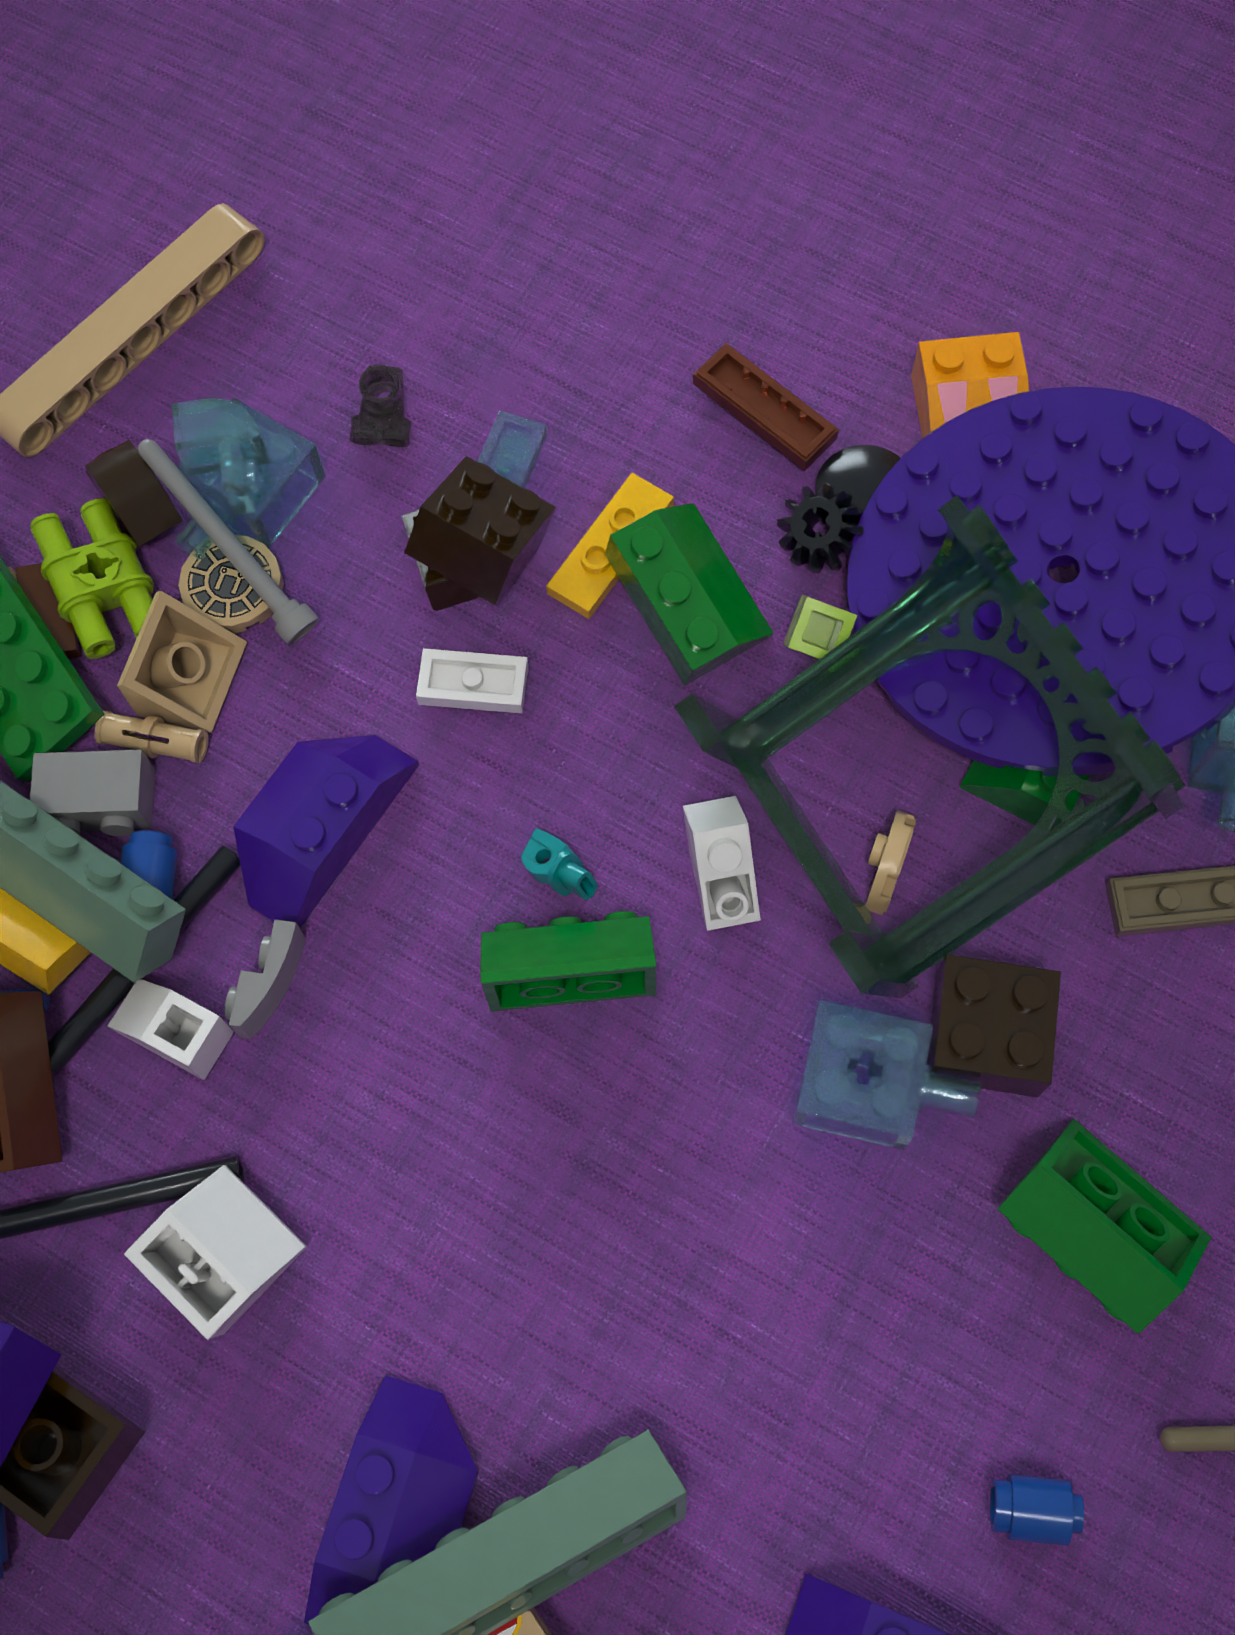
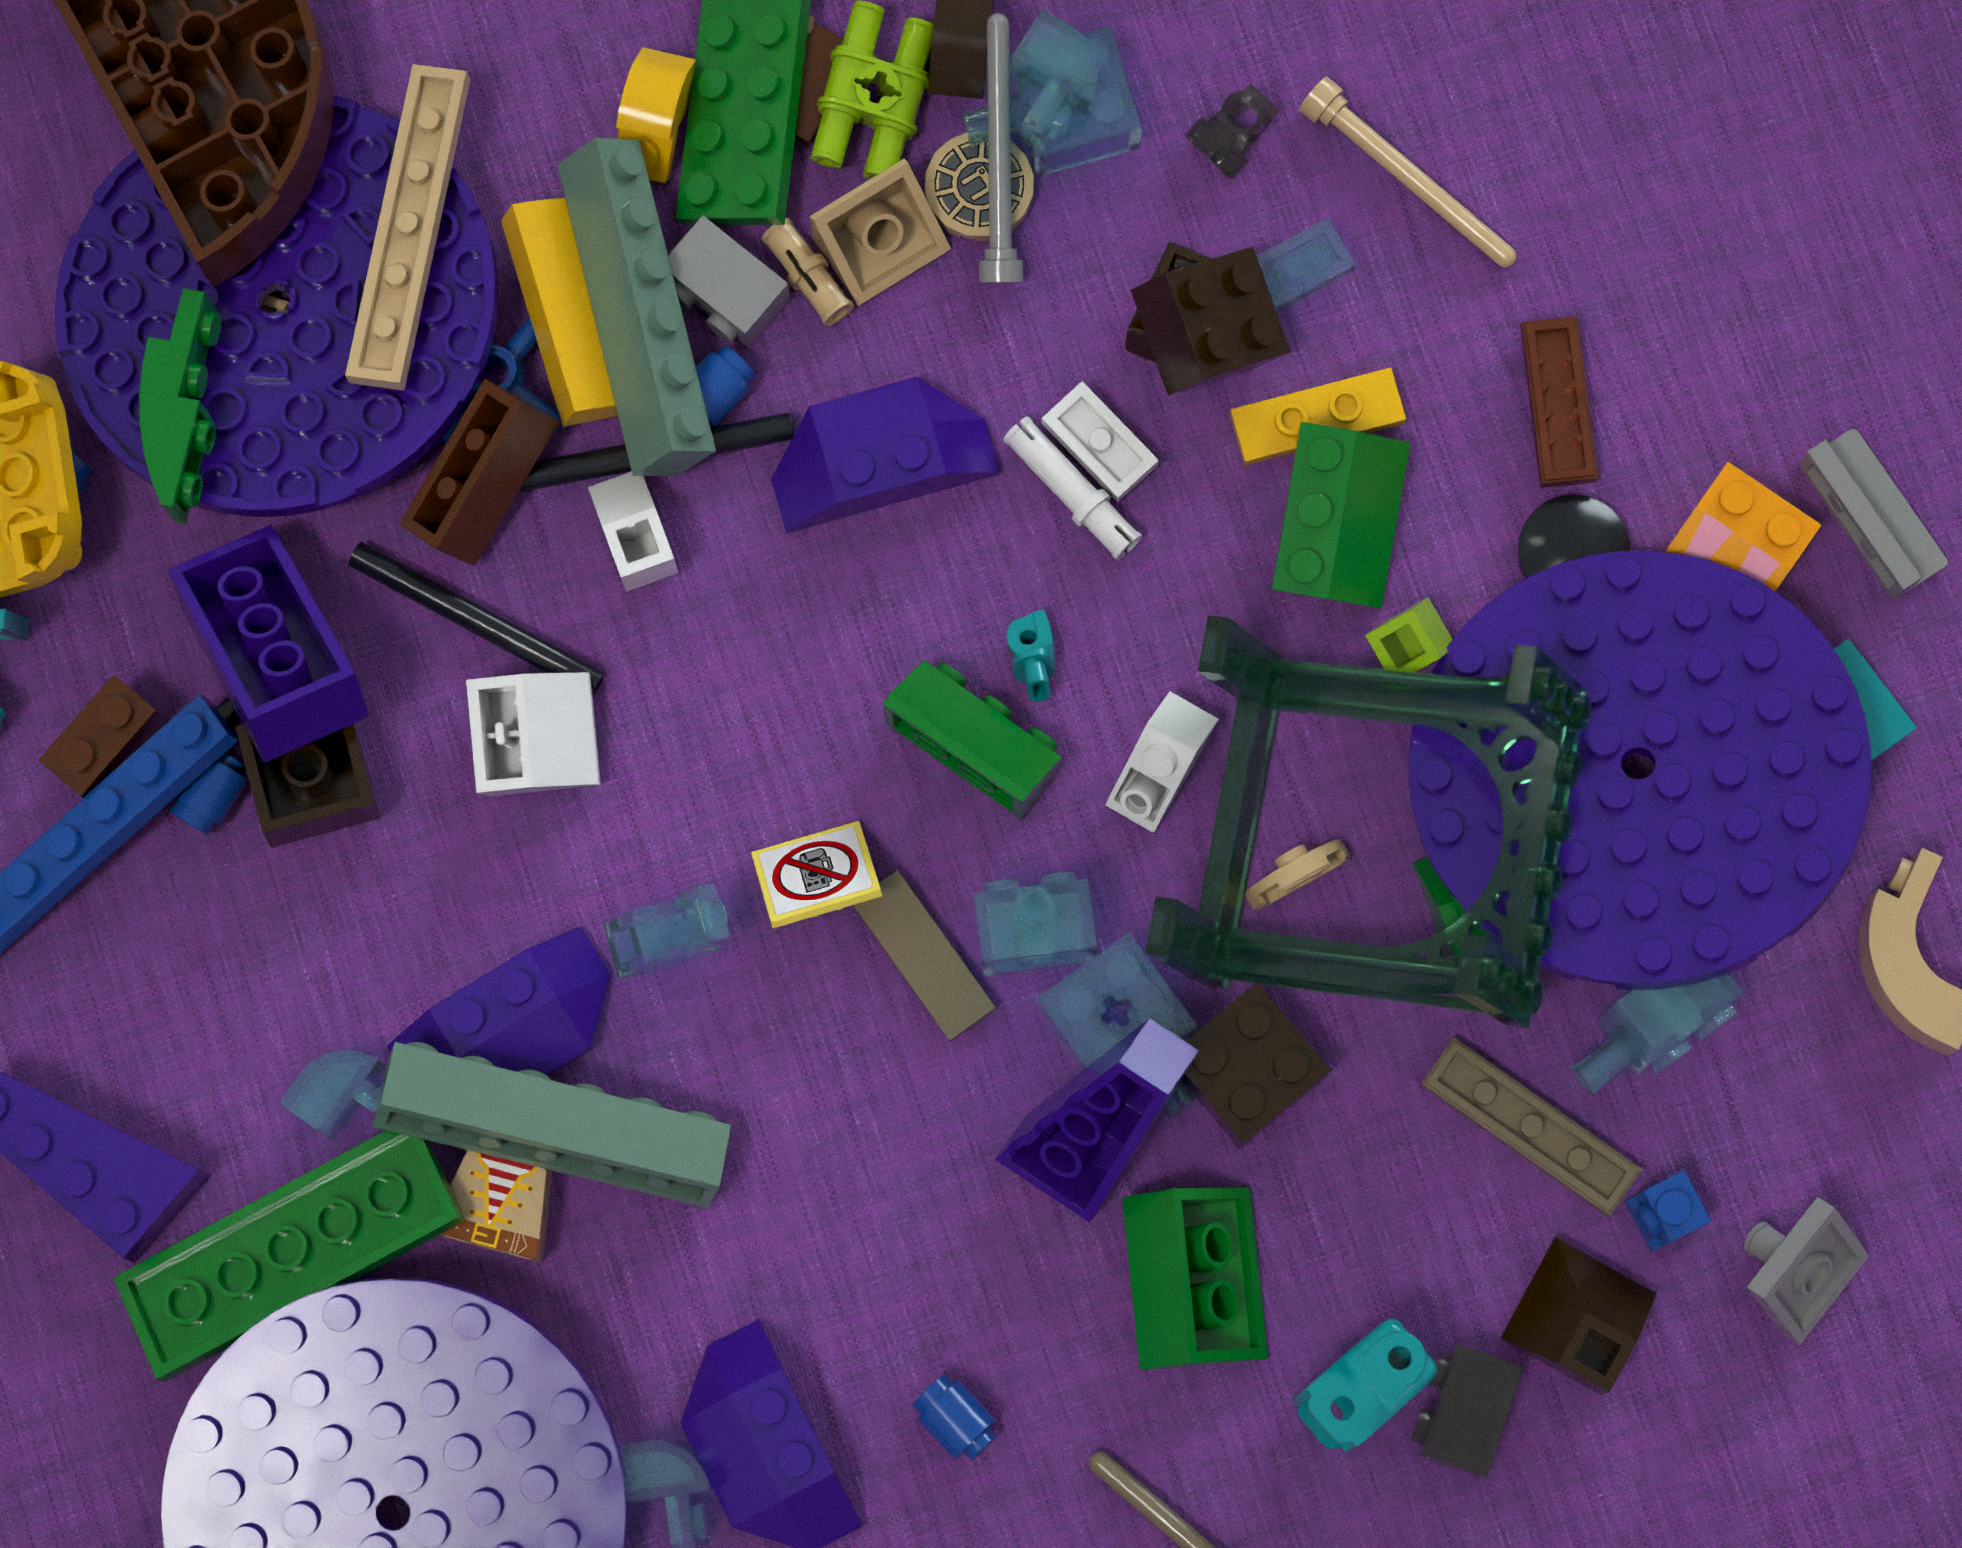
camera: 40 degrees right, 10 degrees up
(260, 994) = (717, 561): light grey slope -> none
(435, 347) = (1329, 107): none -> tan piece
(461, 1316) = (668, 933): none -> clear light blue brick
(482, 728) = (1087, 504): none -> white pin
(540, 1167) = (816, 874): none -> piece
(675, 1159) = (925, 958): none -> dark tan tile
(743, 1056) = (1035, 924): none -> clear light blue brick
(811, 545) = (1483, 543): black gear -> none
(938, 1156) = (1095, 1124): none -> dark purple wedge
(1038, 316) = (1873, 513): none -> light grey panel

